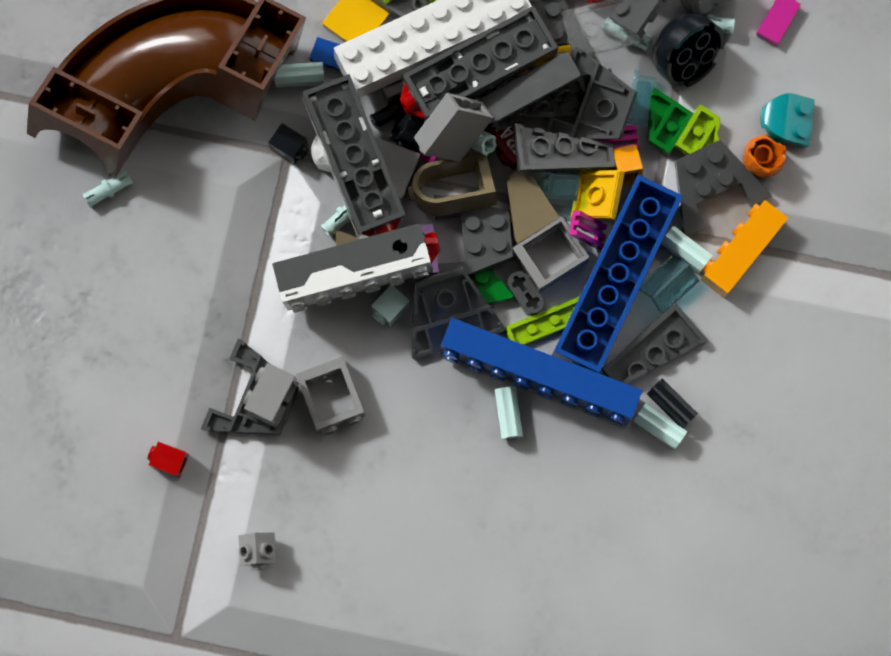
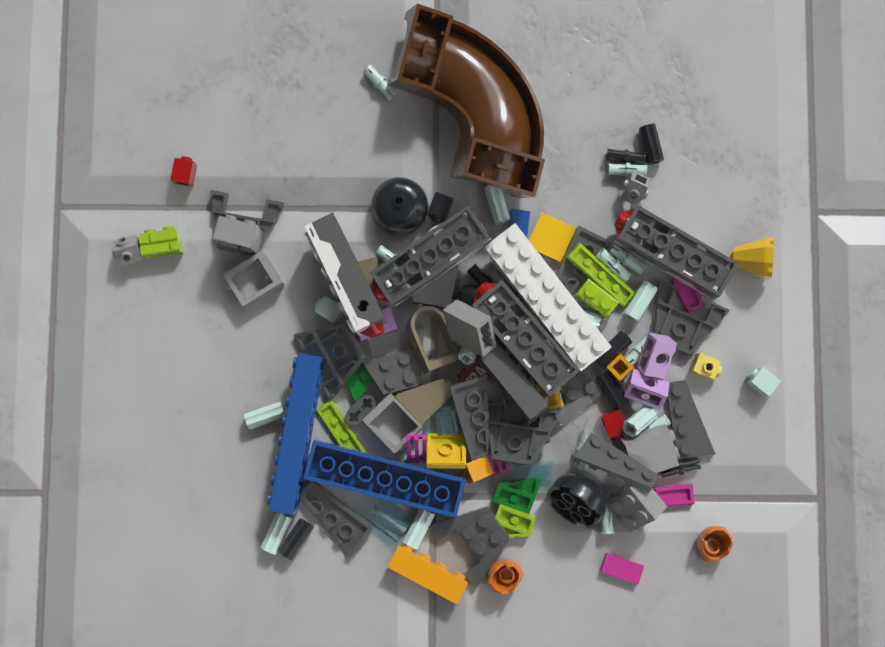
camera: 80 degrees right, 5 degrees up
(256, 506) = (160, 243): none -> lime brick
(277, 208) = (404, 217): none -> black cylinder
(789, 119) = (540, 590): teal slope -> none

